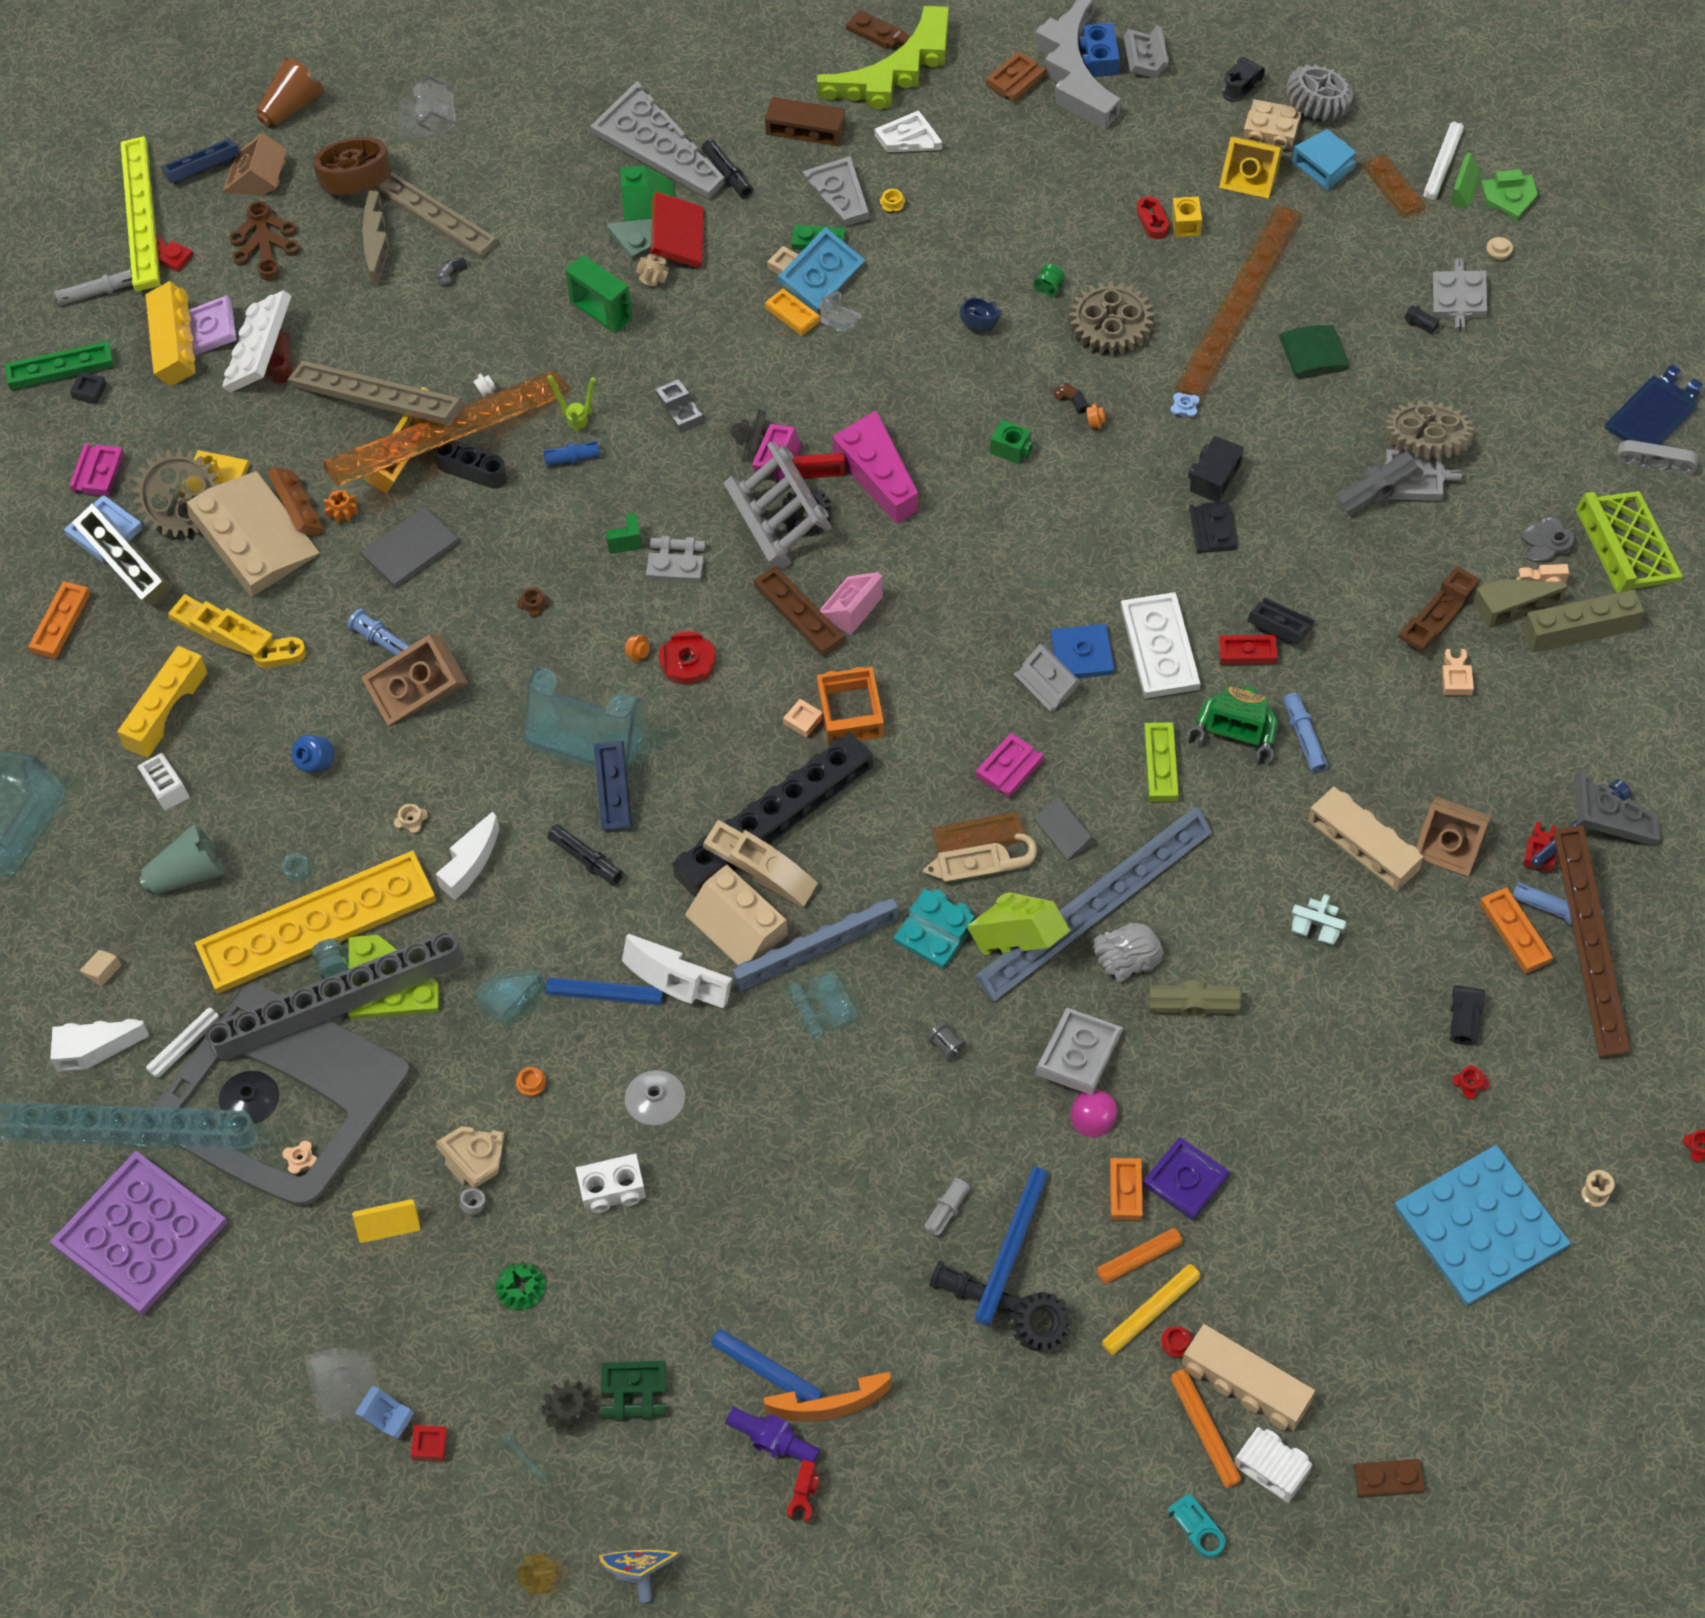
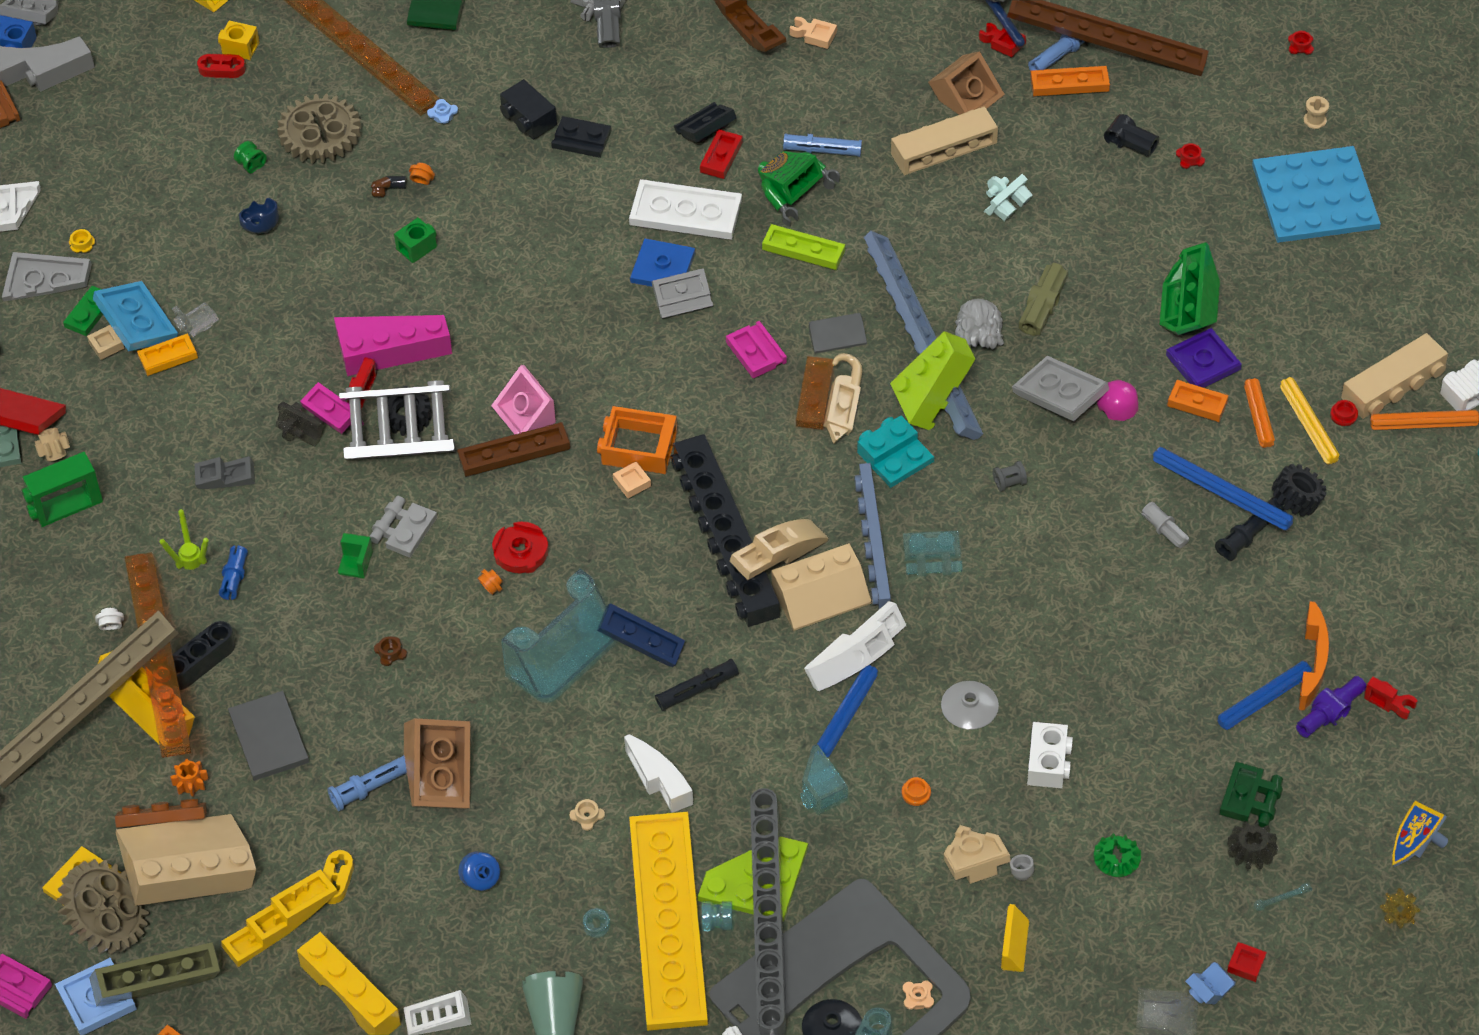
camera: 70 degrees left, 5 degrees down
(1262, 1139) = (1190, 291): none -> green wedge

